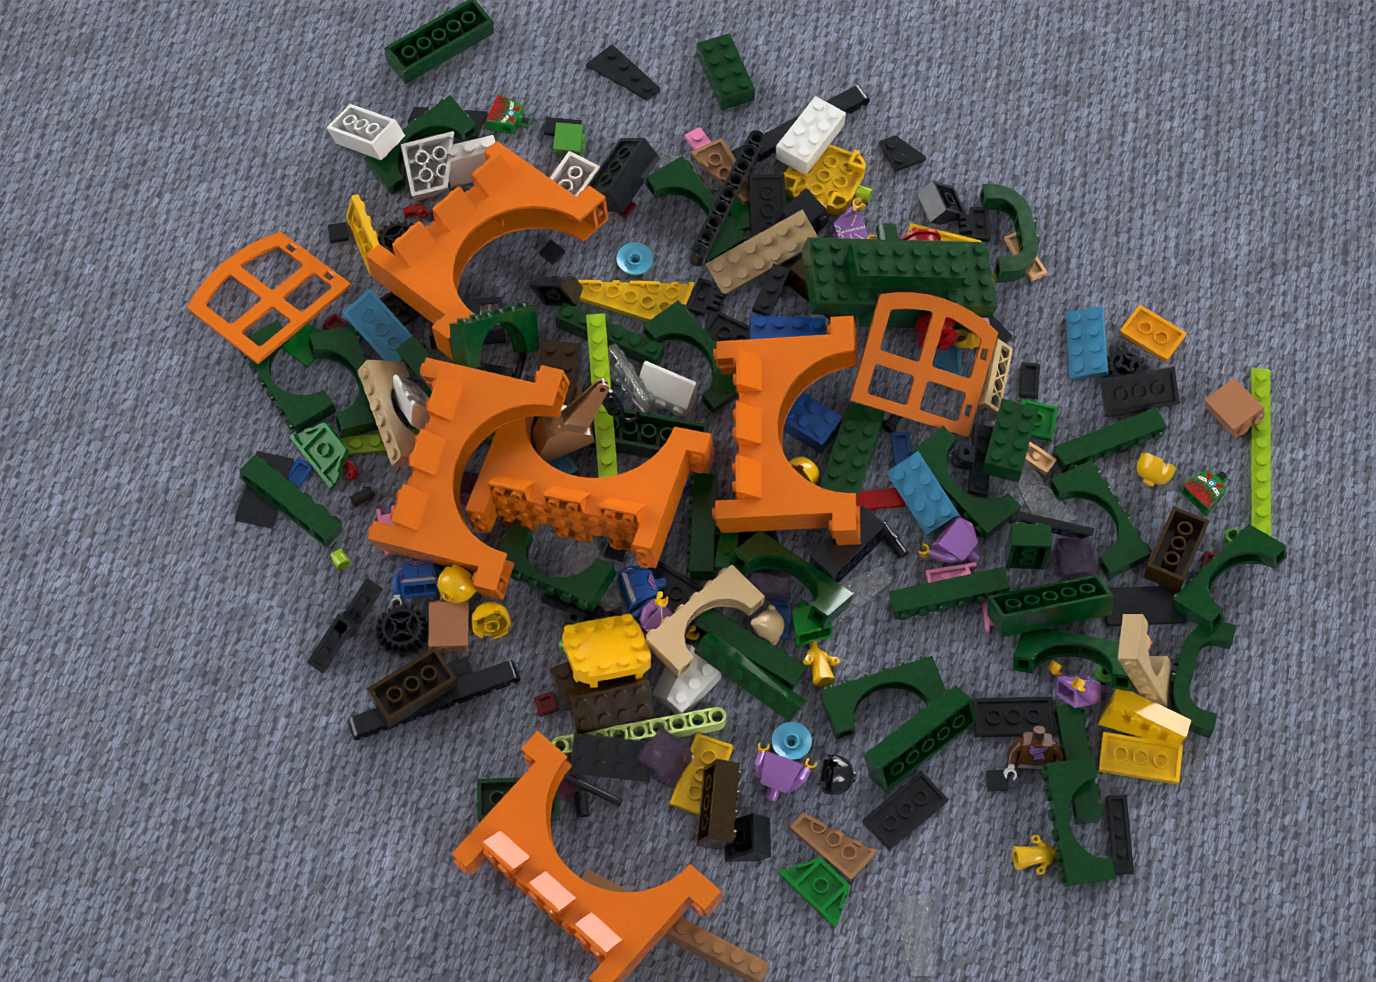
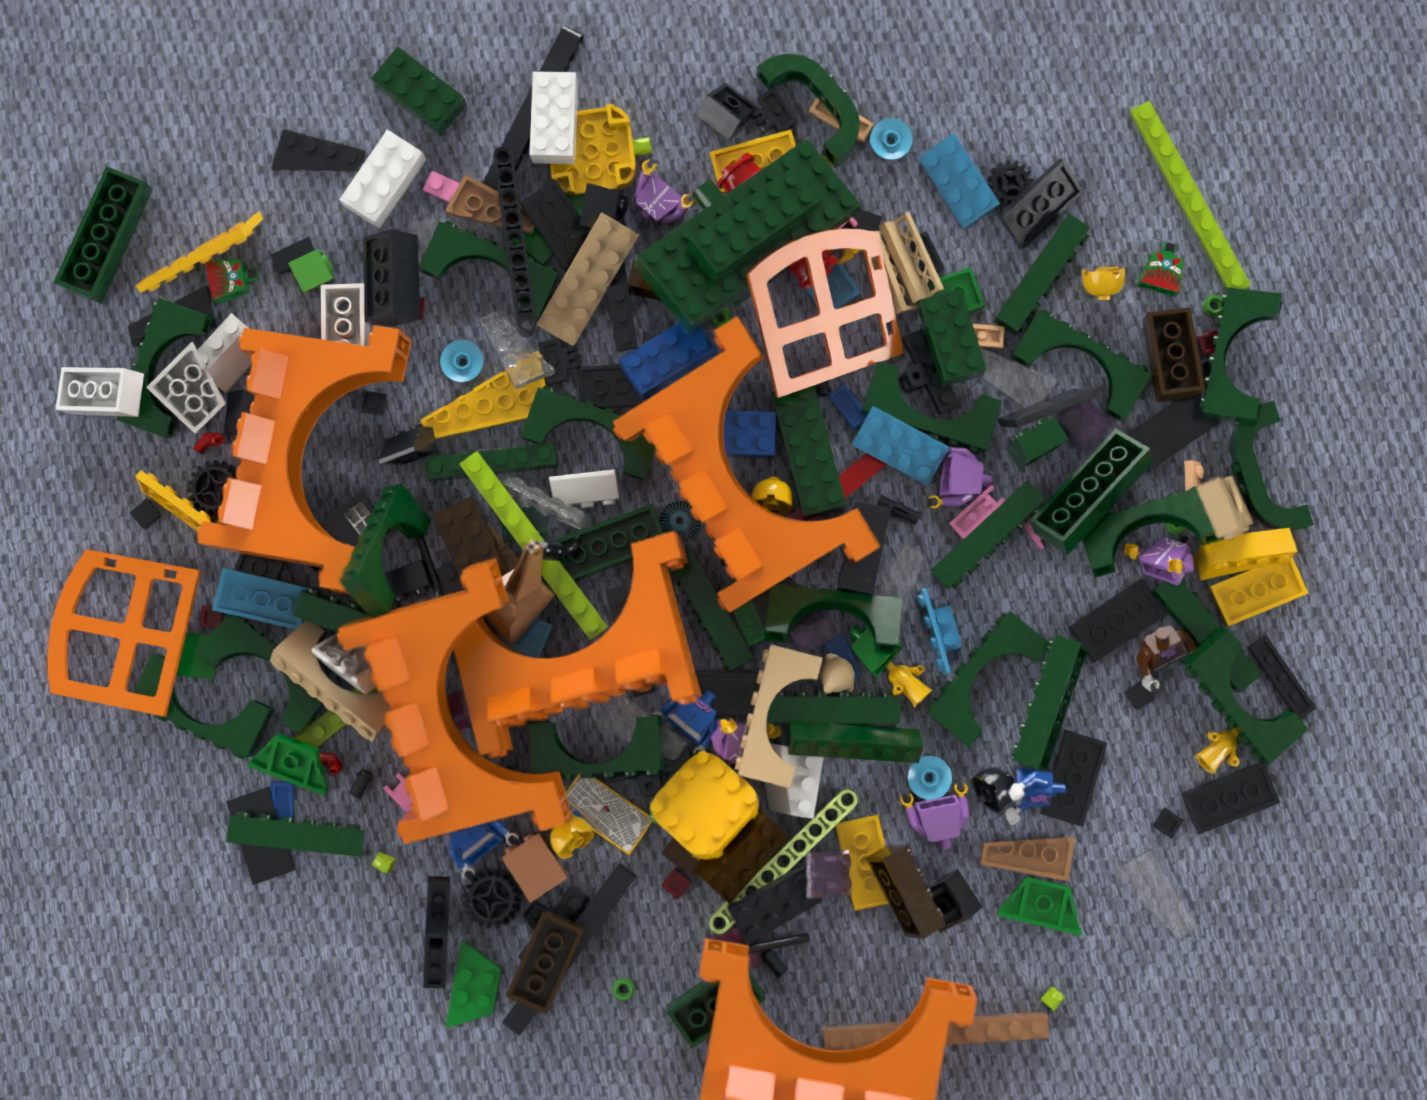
camera: 25 degrees left, 20 degrees up
(343, 686) = (473, 987): none -> green wing
(454, 748) = (623, 996): none -> bright green plate
(455, 584) = (516, 830): yellow cylinder -> none
(505, 87) = (201, 254): none -> yellow wing
(529, 623) = (608, 813): none -> tile
(661, 111) = (383, 179): none -> white brick
(676, 272) = (514, 352): none -> clear wing
(724, 463) = (676, 509): none -> dish
(782, 961) = (1052, 998): none -> lime hose
(865, 791) = (1032, 789): none -> blue torso
(869, 641) = (942, 630): none -> dark azure bracket
(900, 153) = (650, 77): black wing -> none
(959, 887) = (1167, 823): none -> black tile
(1011, 372) = (908, 261): none -> tan fence
(1022, 899) = (1230, 797): none -> black tile
(1055, 281) = (893, 129): none -> medium azure dish
(1152, 333) = (1015, 130): light orange plate -> none
(1234, 408) = (1143, 166): nougat brick -> none

